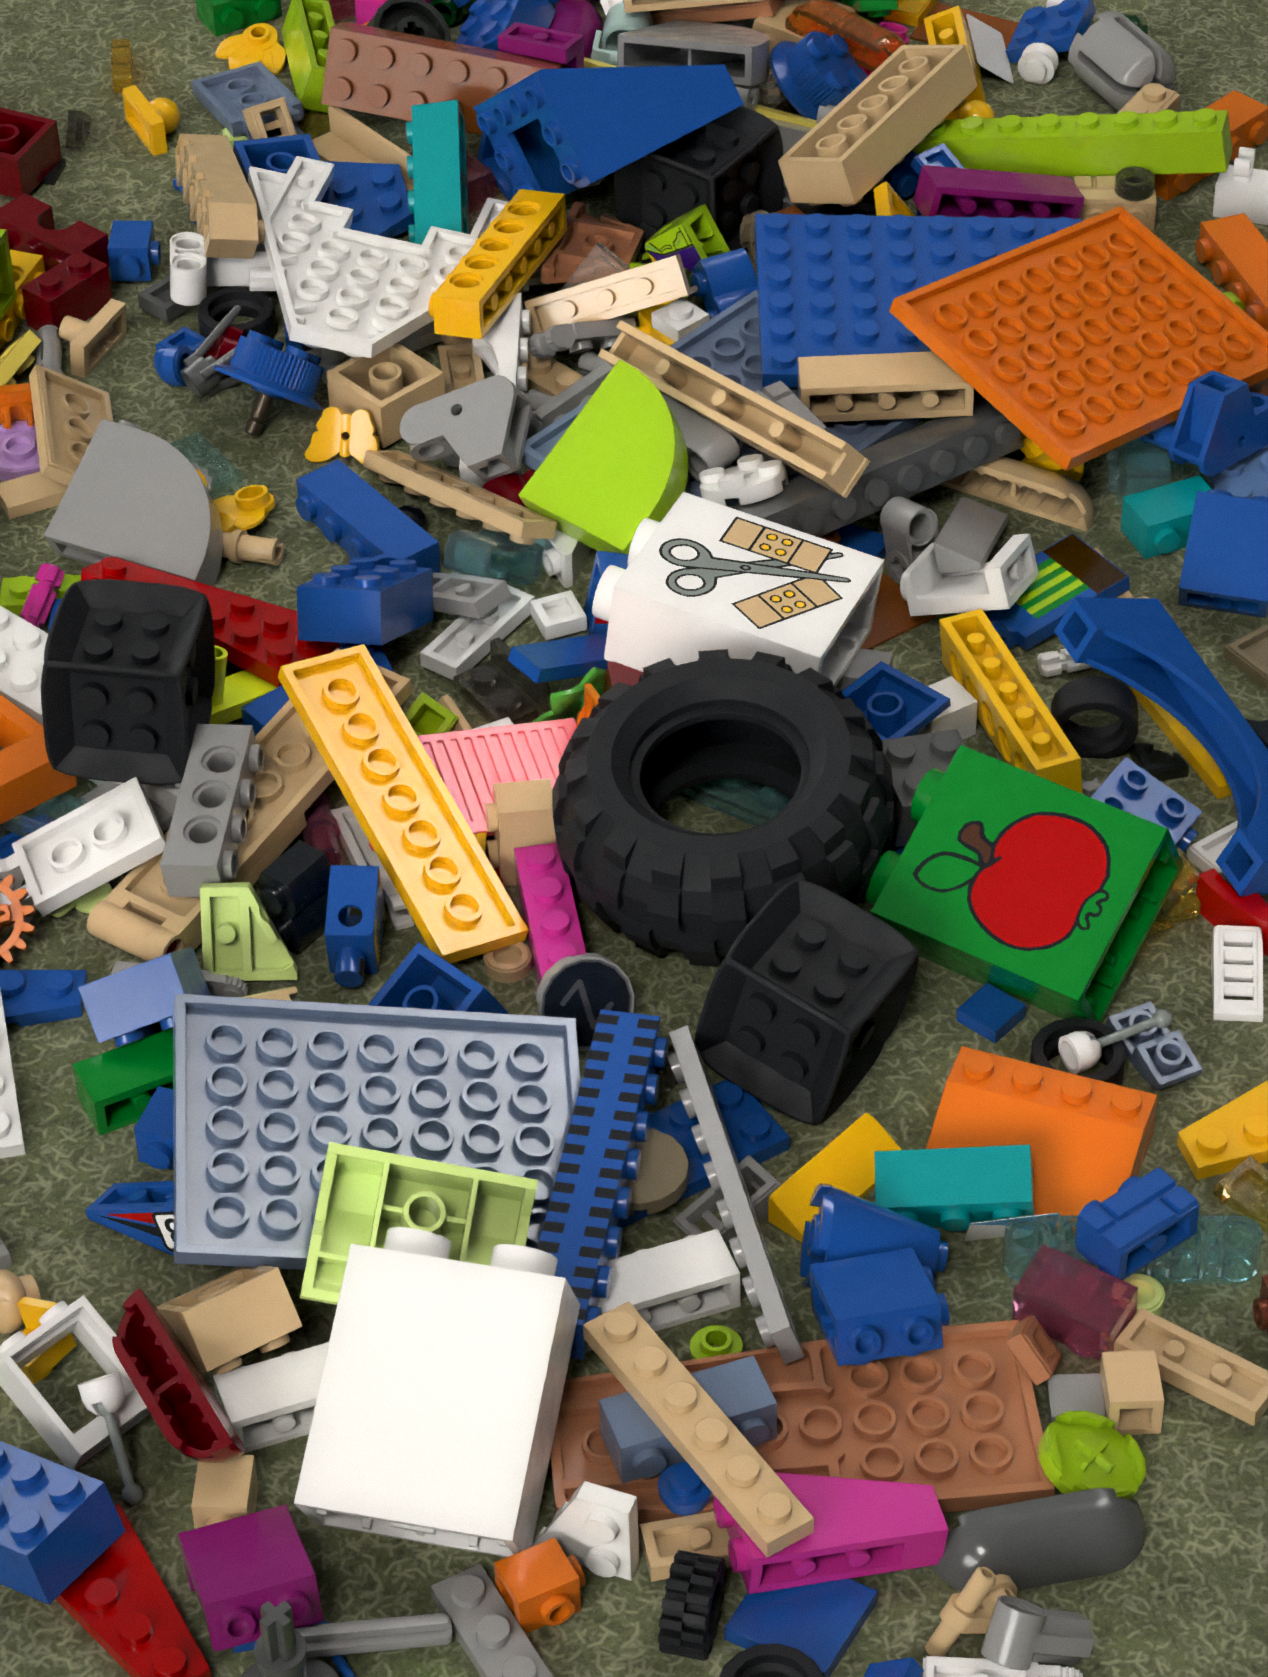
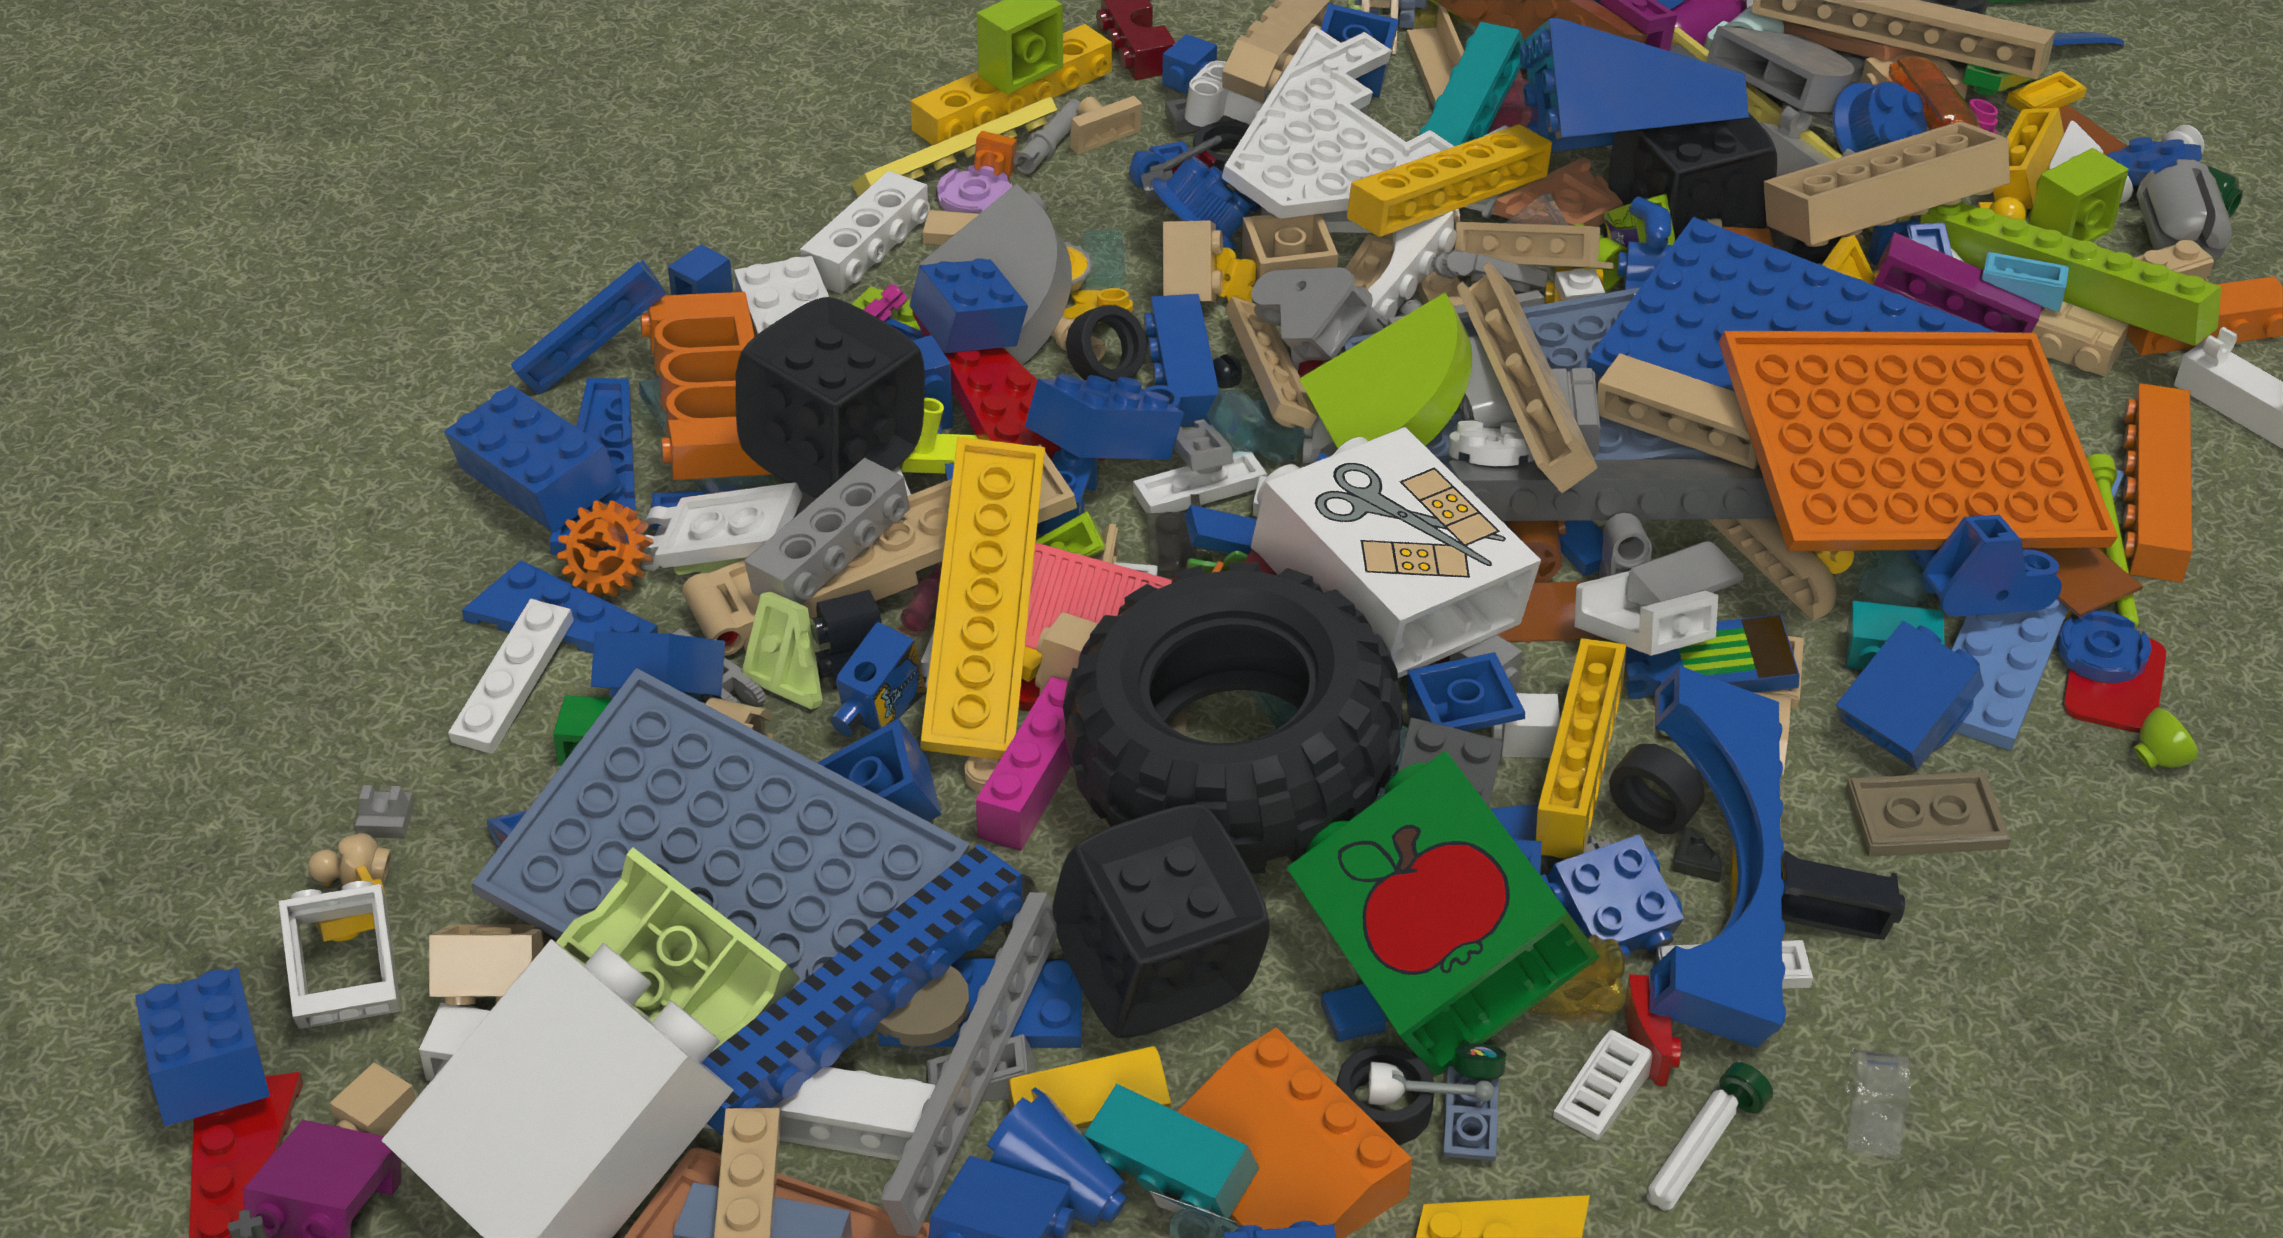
camera: 30 degrees right, 0 degrees up
(64, 420) = (1031, 166): tan tile -> none
(71, 288) = (1111, 77): dark red brick -> none
(103, 1398) = (334, 977): hinge -> none
(152, 546) = (968, 305): none -> blue brick
(173, 1385) = (390, 996): dark red brick -> none
(308, 430) = (1191, 259): none -> tan brick
(310, 529) = (1129, 332): none -> black tyre
(374, 194) = (1409, 93): blue wing -> none
(582, 987) = (1007, 826): black tile -> none
(704, 1339) = (863, 1177): lime plate -> none
(717, 229) = (1656, 220): none -> blue arm
(1029, 76) = (2080, 196): none -> lime brick
(1054, 165) = (2028, 278): none -> medium azure slope
(1134, 183) = (2100, 324): clear smoke tile -> none
(1135, 998) = (1479, 1061): none -> dark green tile

